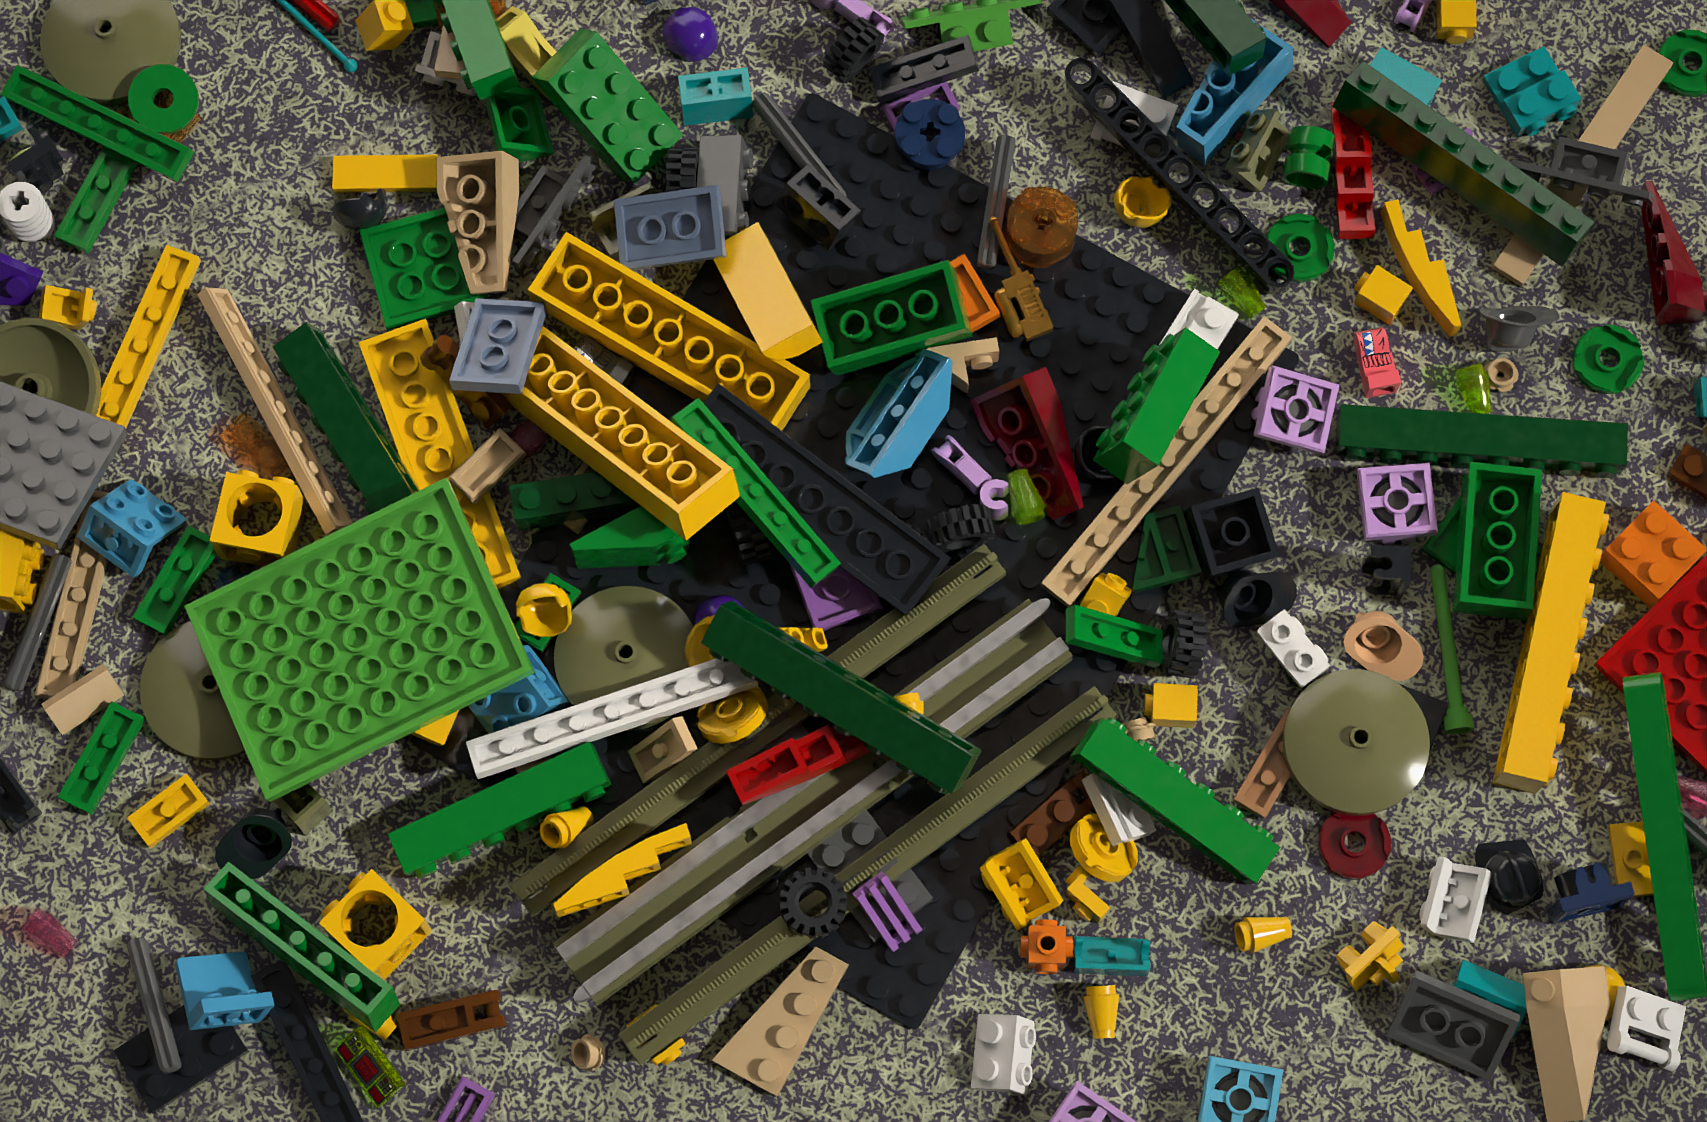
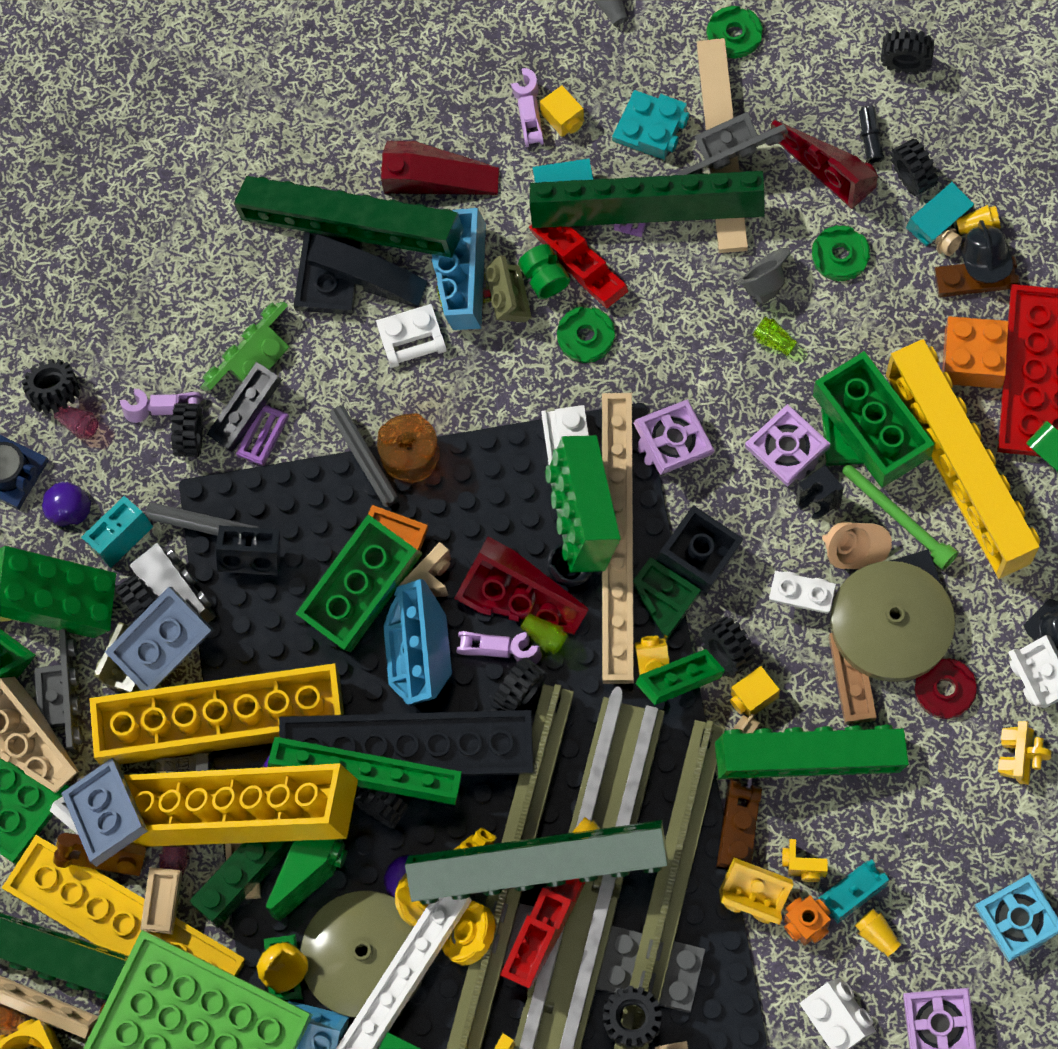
camera: 30 degrees left, 5 degrees down
(662, 749) = (441, 997): tan slope -> none
(766, 296) = (262, 634): yellow brick -> none
(836, 599) = (475, 801): medium lavender tile -> none
(902, 933) = (704, 989): medium lavender tile -> none
(943, 148) = (284, 429): dark blue plate -> none
(1022, 290) = (434, 500): pearl gold piece -> none
(1096, 852) = (789, 823): yellow tile -> none
(1118, 815) = (780, 792): white plate -> none
(1153, 199) = (466, 376): yellow hair -> none
(1174, 159) = (459, 337): black beam -> none
(1242, 292) = (573, 390): clear neon green cone -> none
(1255, 597) = (748, 579): black piece -> none
(1261, 932) = (936, 796): yellow cone -> none
(1376, 363) = (697, 368): coral leg -> none
(1382, 294) = (664, 322): yellow brick -> none
(1426, 277) = (683, 290): yellow slope -> none
(1481, 438) = (803, 364): dark green brick -> none
(1509, 371) = (785, 308): tan plate -> none

